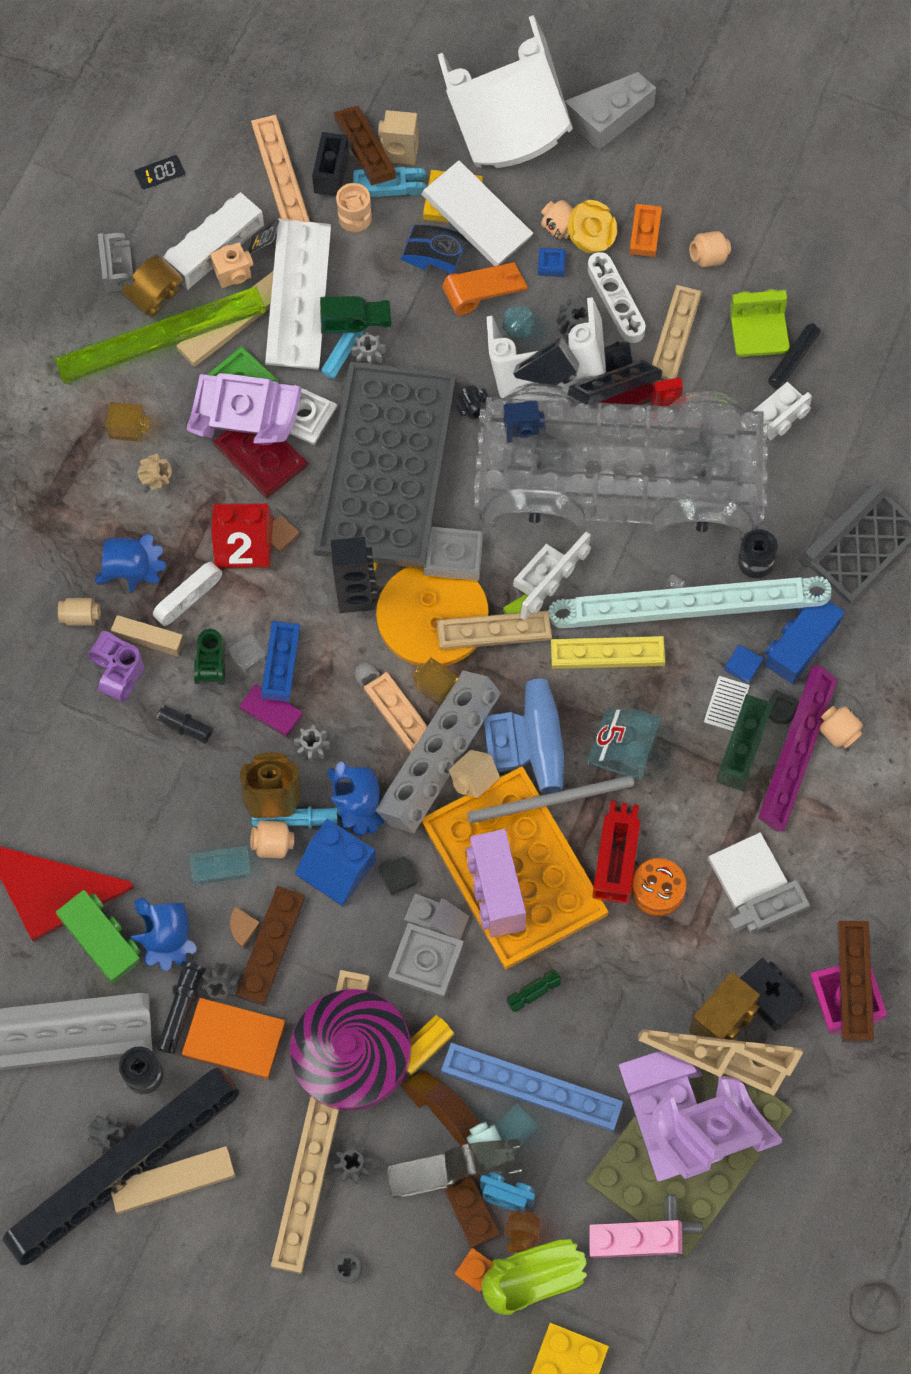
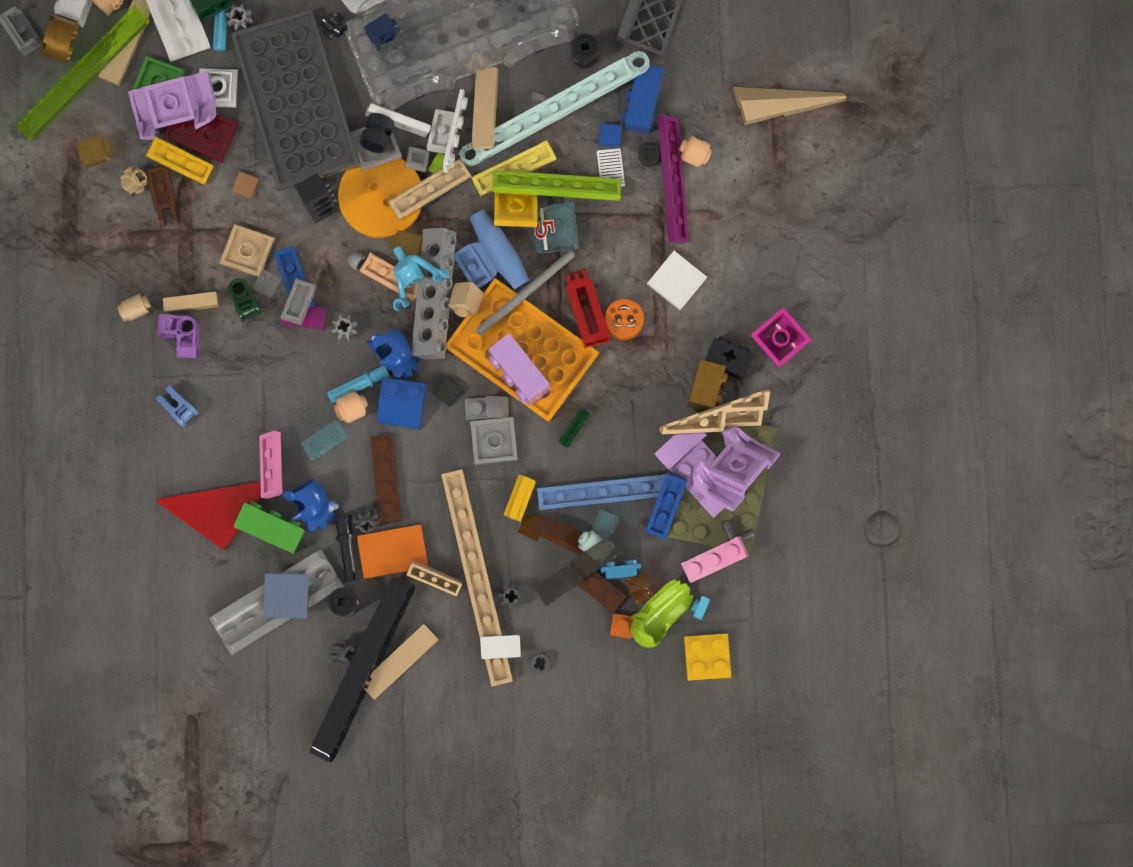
camera: 30 degrees left, 15 degrees up
(73, 753) = (182, 412): none -> medium blue piece
(75, 1028) = (286, 596): none -> sand blue tile
(131, 560) = (152, 254): blue piece -> none
(140, 862) = (270, 464): none -> bright pink plate
(179, 502) = (162, 193): none -> reddish brown hinge
(184, 724) = (249, 353): black axle -> none
(187, 593) = (203, 259): white beam -> none
(217, 471) = (179, 160): none -> yellow tile
(242, 535) = (220, 200): red slope -> none
(242, 926) = (360, 474): medium nougat tile -> none
(243, 607) = (247, 250): none -> tan tile
(268, 1094) = (434, 578): none -> tan piece
(270, 786) = (332, 371): pearl gold brick -> none
(271, 686) = (298, 302): none -> light grey tile
(307, 1220) = (500, 647): none -> white sticker
(350, 1049) = (474, 524): dish -> none
(420, 713) = (409, 273): none -> medium azure piece
(462, 537) = (377, 134): none -> black wheel
(494, 535) = (401, 121): none -> white tile
(496, 590) = (417, 159): none -> light grey tile
(587, 694) = (515, 210): none -> yellow plate
(588, 1293) = (699, 607): none -> medium azure plate
(604, 1139) = (666, 505): none -> blue plate
(605, 567) = (485, 108): none -> tan tile
(650, 691) = (556, 185): none -> lime plate
(744, 742) = (636, 193): clear green brick -> none
(770, 908) = (703, 299): light grey hinge -> none
(855, 981) = (782, 327): reddish brown plate -> none

